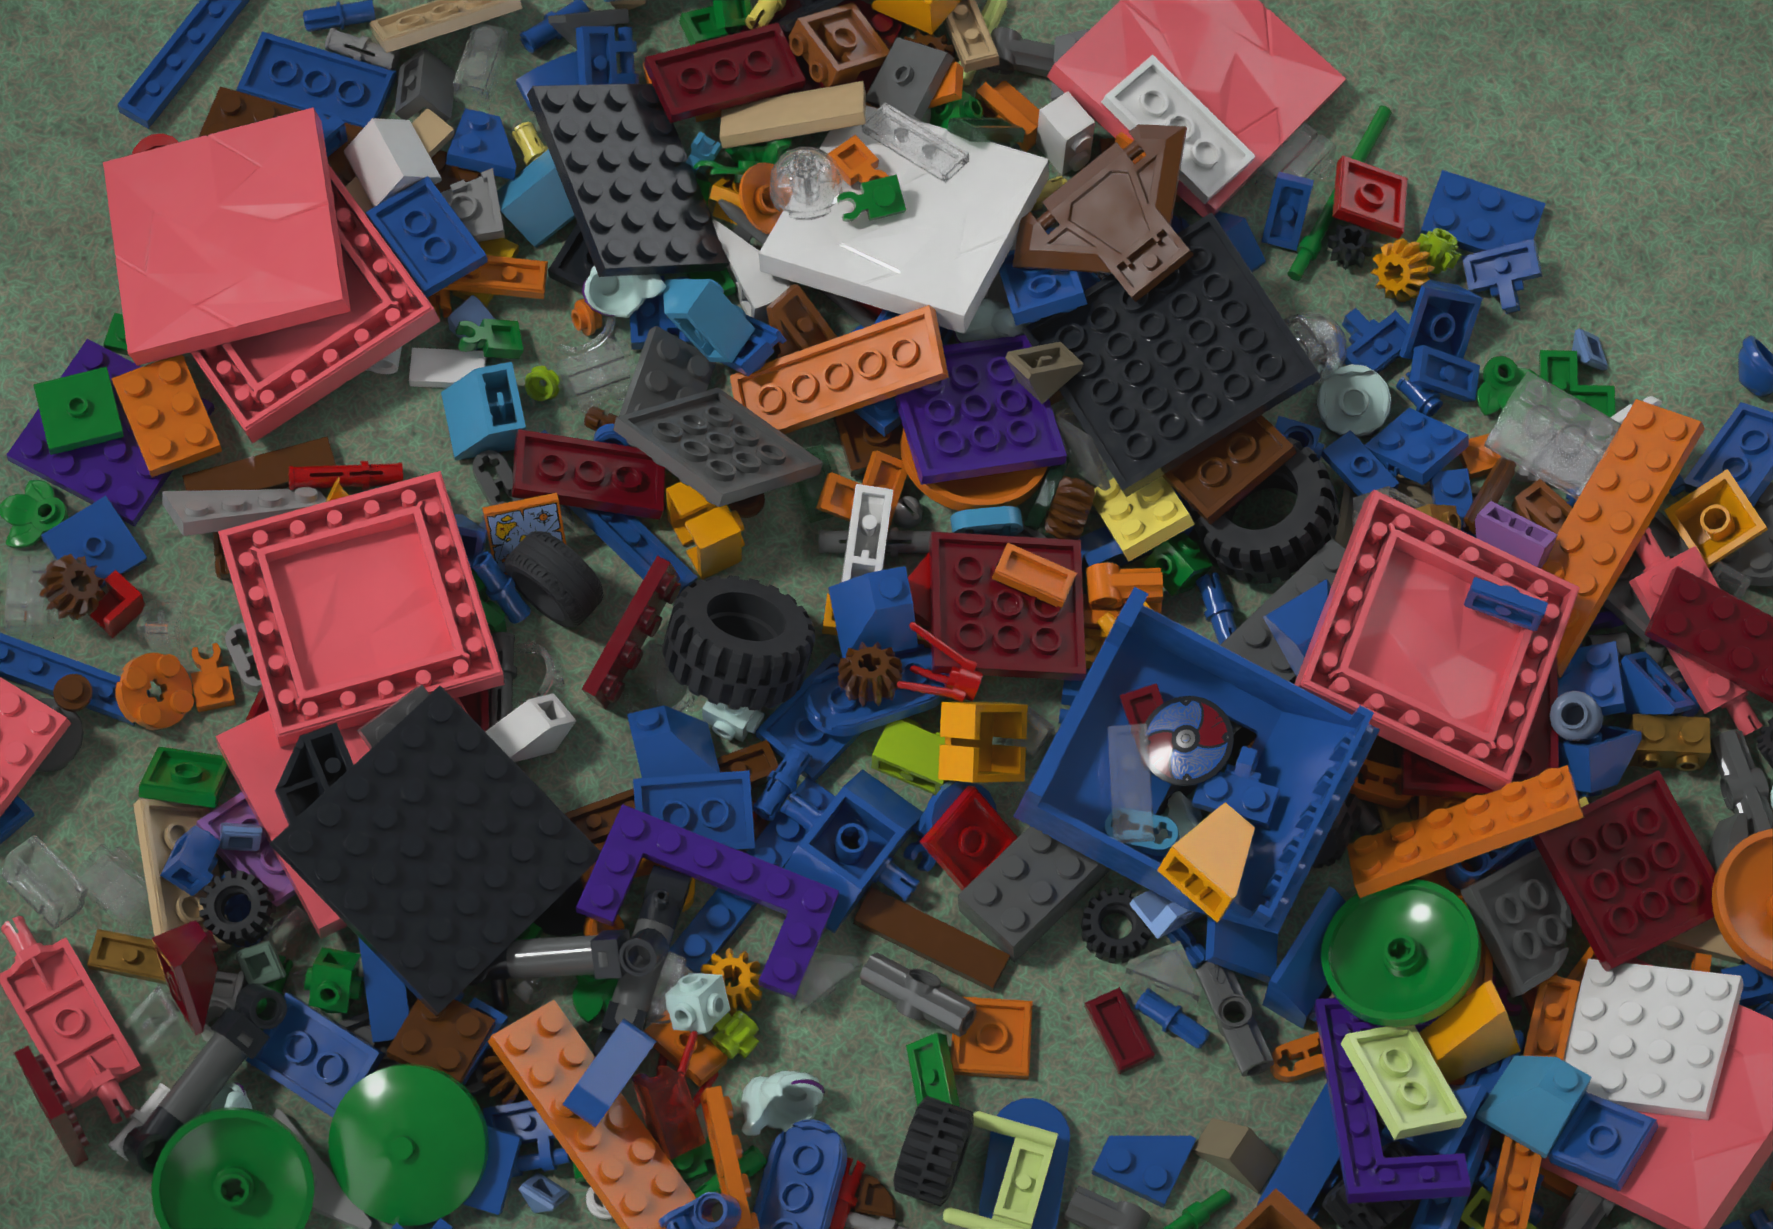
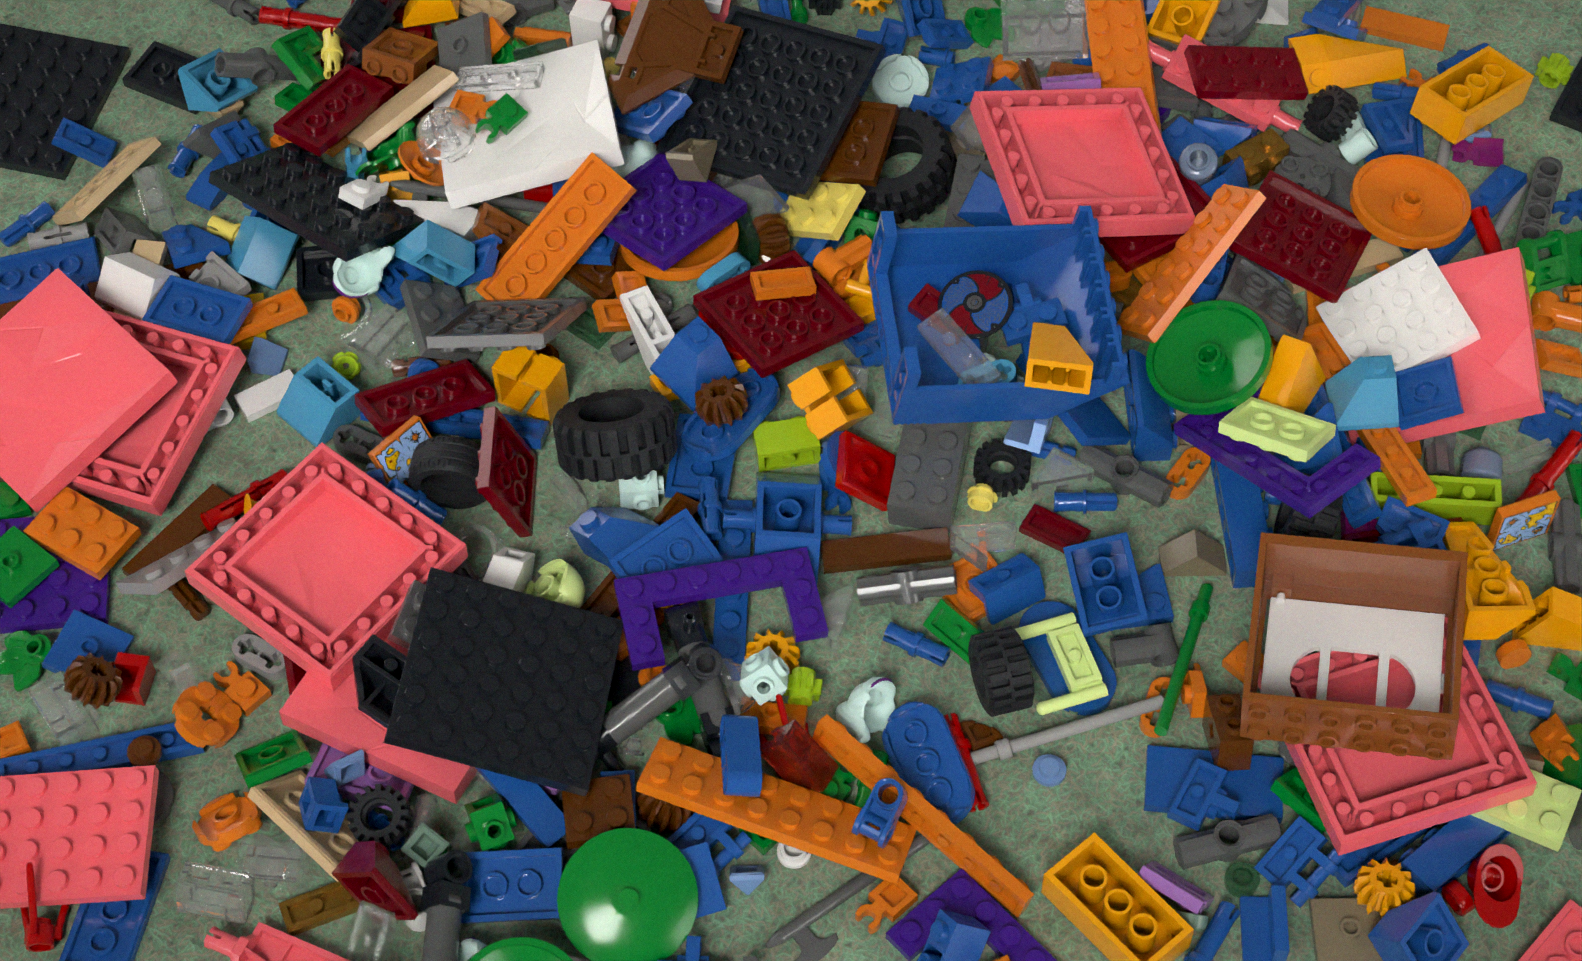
camera: 30 degrees left, 10 degrees down
(88, 823) = (227, 821): none -> orange plate
(495, 336) = (291, 354): green plate -> none
(568, 774) = (558, 583): none -> yellowish green cylinder
(597, 607) = (507, 472): none -> dark red plate
(638, 622) = (536, 470): dark red plate -> none
(678, 200) = (363, 192): none -> white plate
(884, 1062) = (916, 644): none -> blue pin
(960, 683) = (786, 369): red plant -> none
(1019, 1063) = (1008, 588): none -> blue panel
(1020, 990) = (975, 540): none -> clear slope
(1071, 944) = (981, 497): none -> light yellow plate
(1112, 1129) = (1105, 584): none -> blue slope
(1505, 603) = (1109, 113): blue plate -> none
(1706, 814) = (1314, 172): none -> dark grey plate

